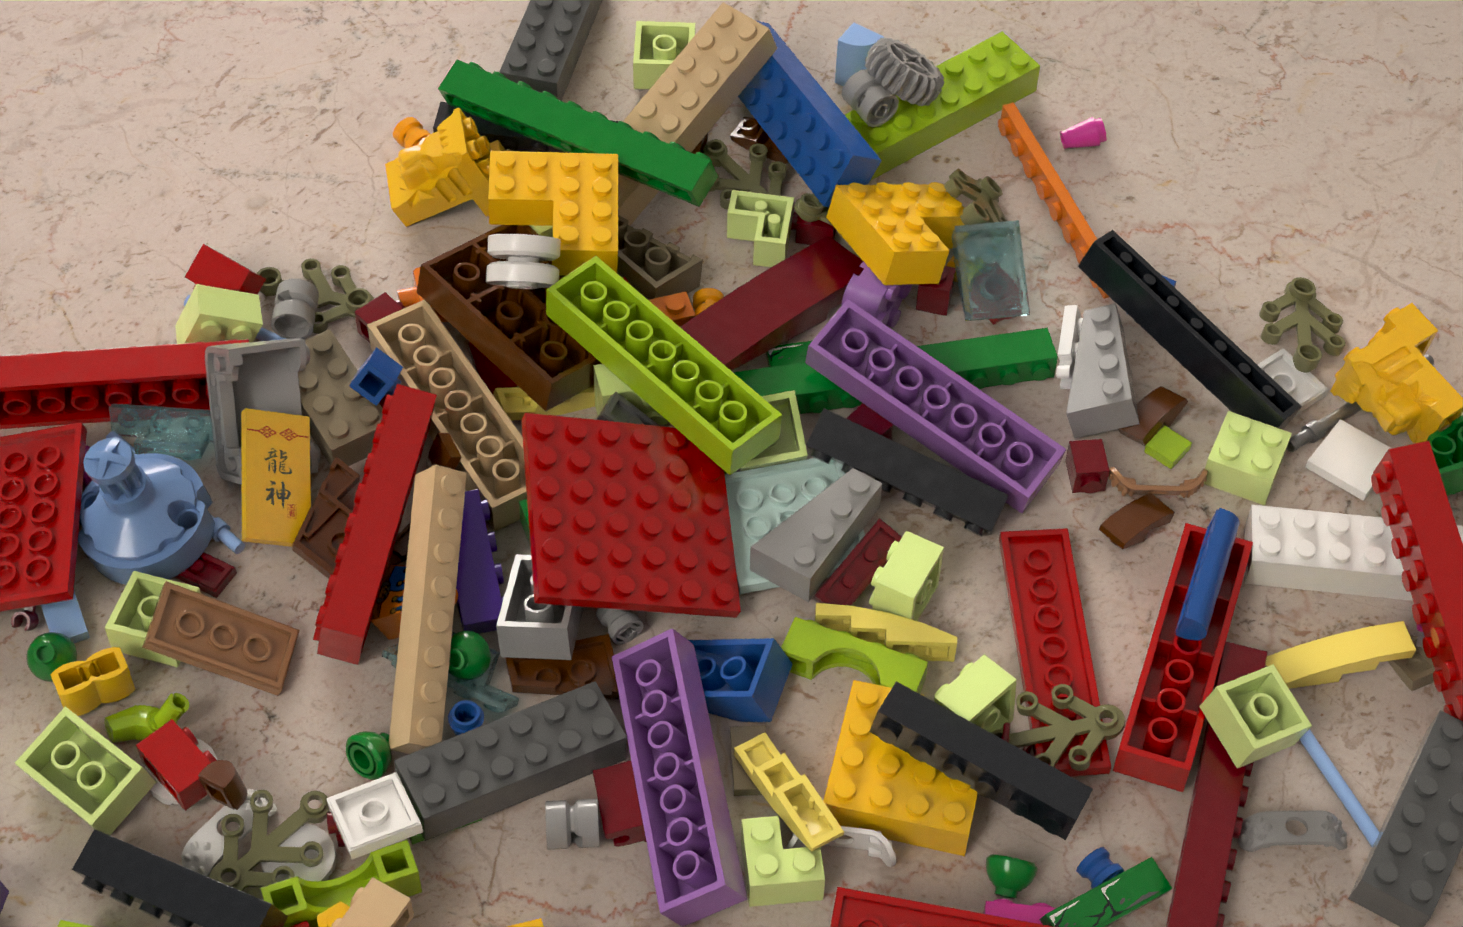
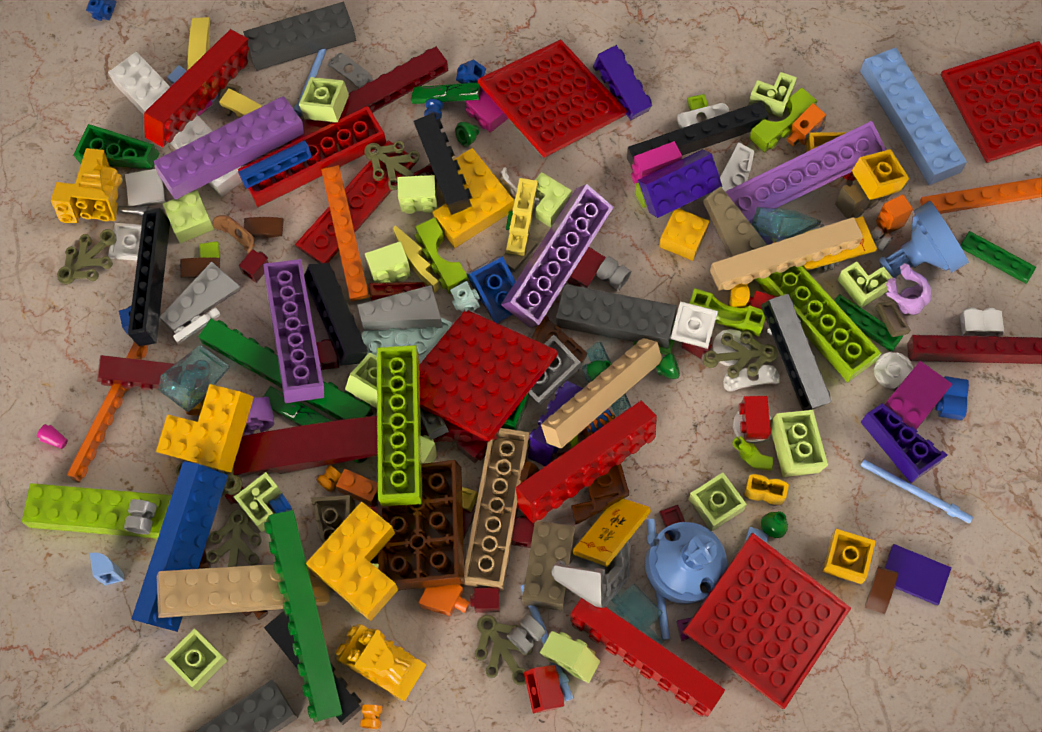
camera: 135 degrees left, 15 degrees up
(221, 638) = (696, 464): medium nougat tile -> none
(223, 784) = (744, 387): reddish brown brick -> none
(377, 377) = (525, 544): blue brick -> none
(465, 717) = (621, 344): blue cone -> none
(523, 258) = (415, 523): white wheel -> none
(737, 246) = (280, 504): none -> blue wheel
(755, 621) = (465, 297): none -> light aqua brick
(904, 71) = (110, 511): light grey gear -> none
(985, 198) = (149, 423): olive plant -> none
(1027, 591) = (345, 233): none -> orange plate
(1068, 233) = (130, 372): none -> dark red brick
(1292, 548) = (229, 147): none -> medium lavender brick

